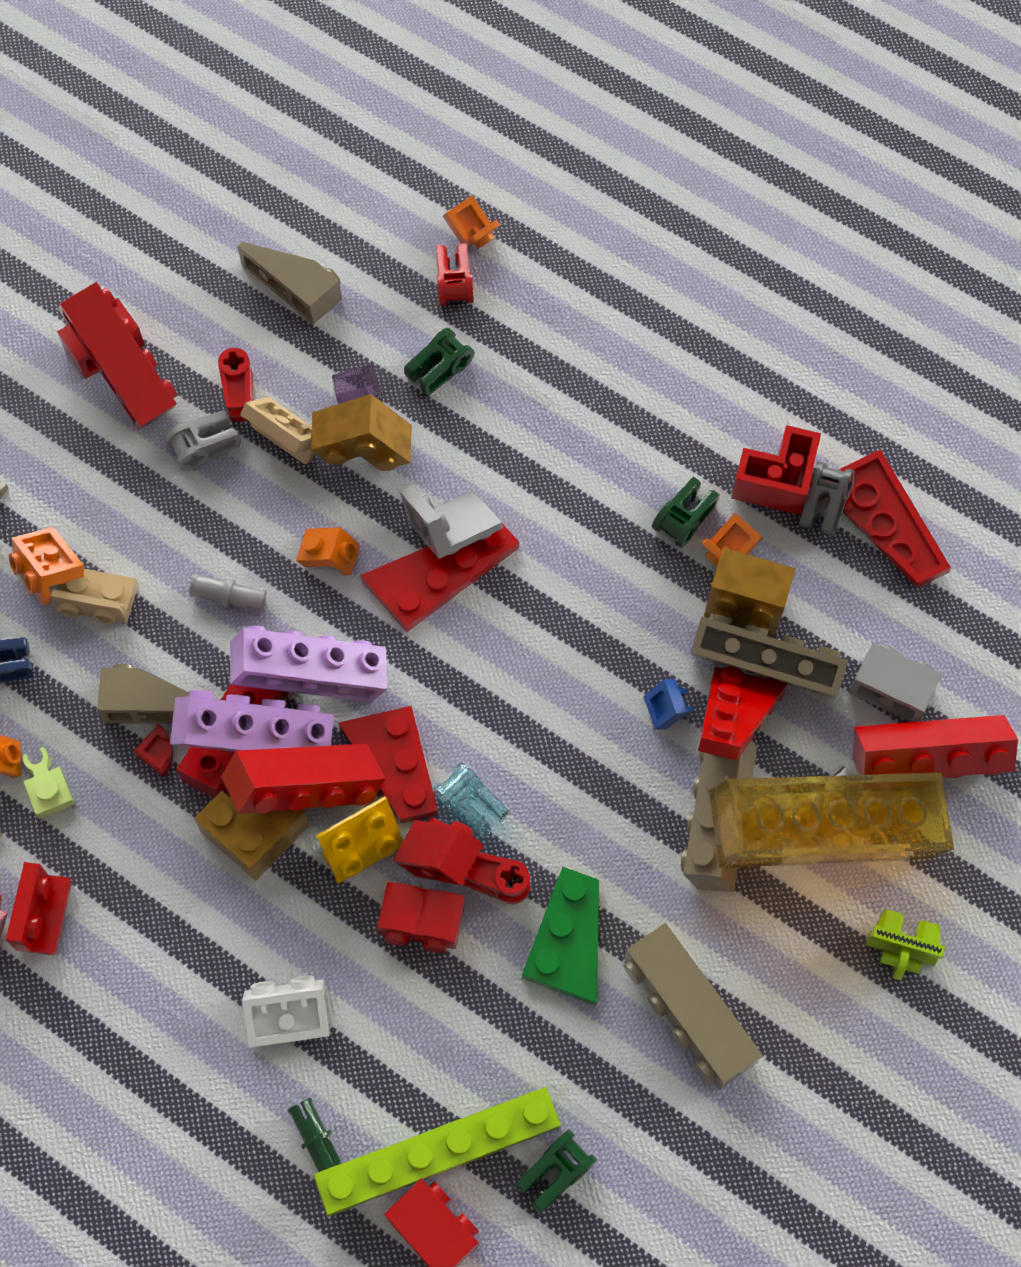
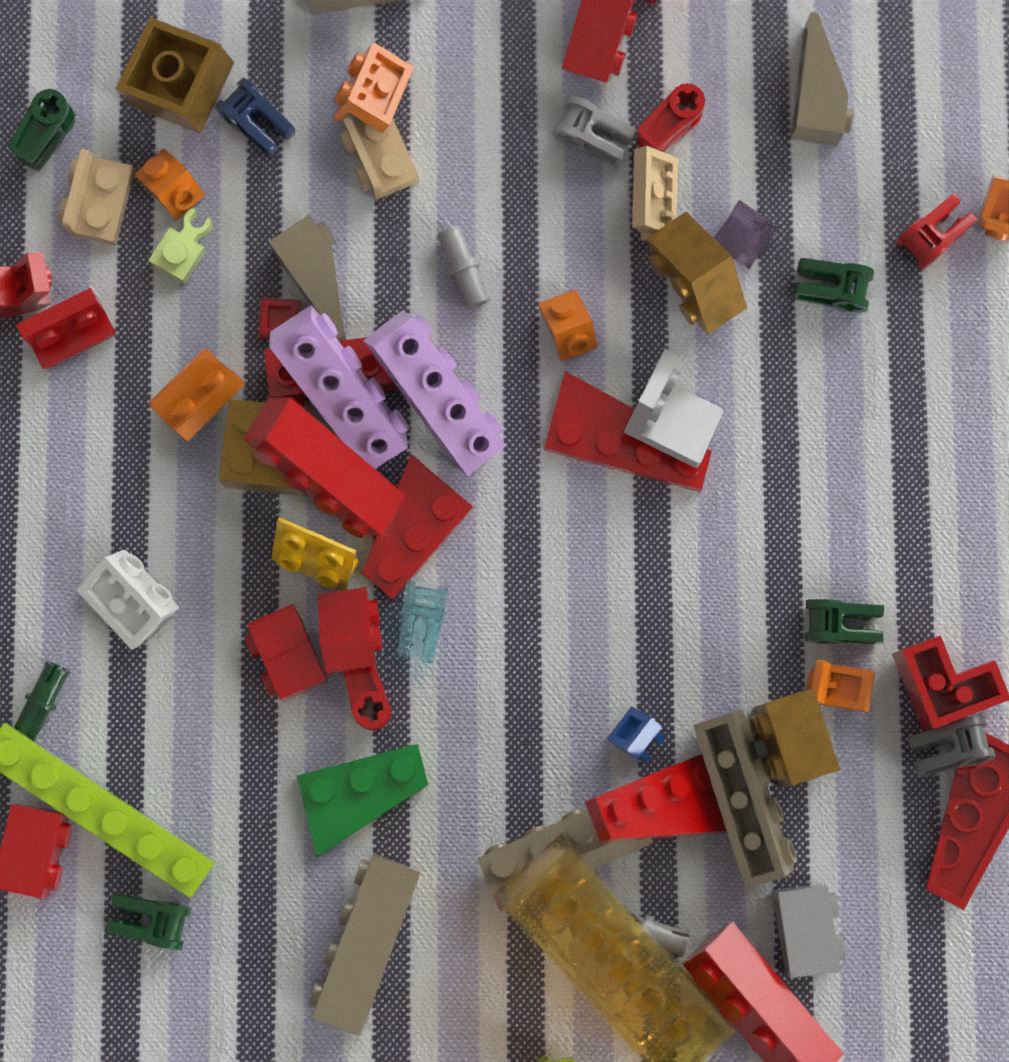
camera: 50 degrees right, 15 degrees up
(170, 847) = (196, 394): none -> orange bracket

